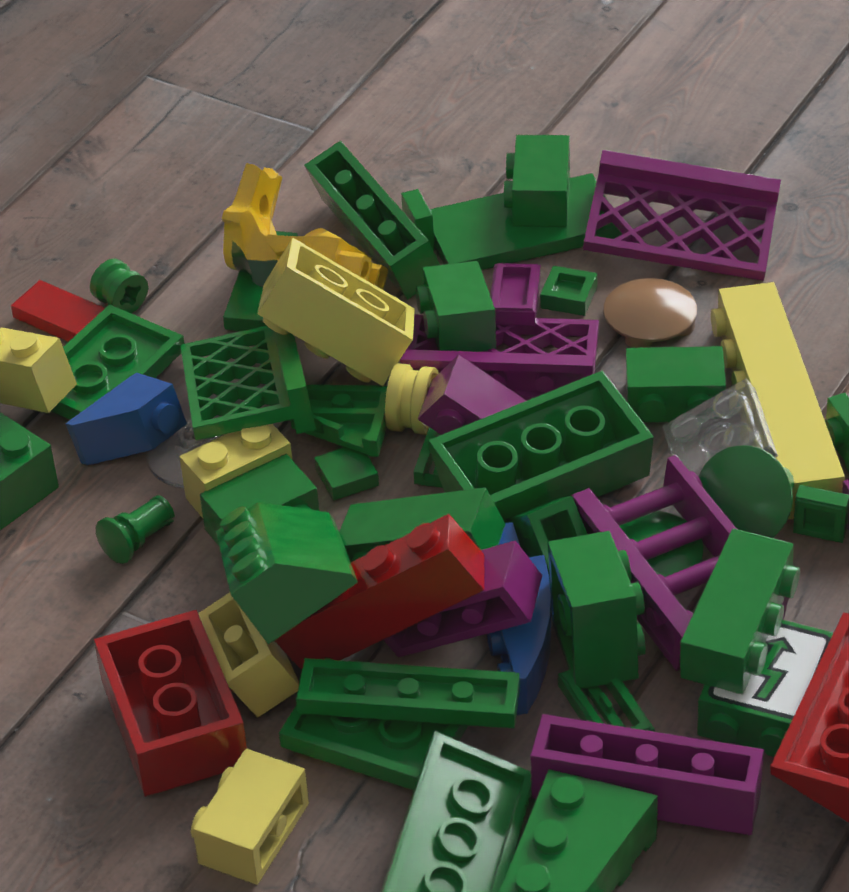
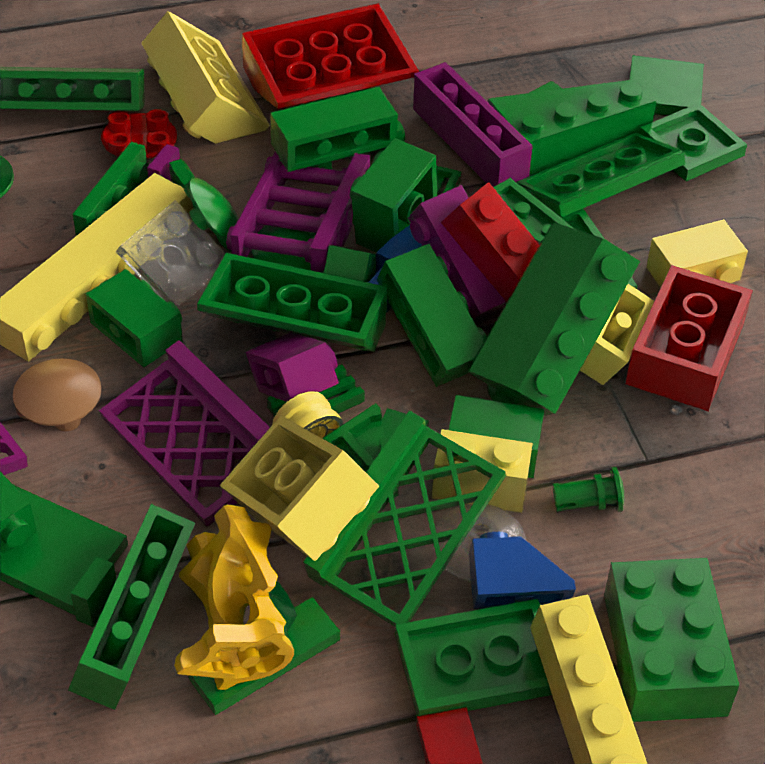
camera: 140 degrees left, 5 degrees up
(118, 285) = (388, 732): green wheel -> none
(457, 307) = (188, 464): green brick -> none
(516, 293) = (120, 473): magenta tile -> none
(568, 290) = (78, 454): green tile -> none

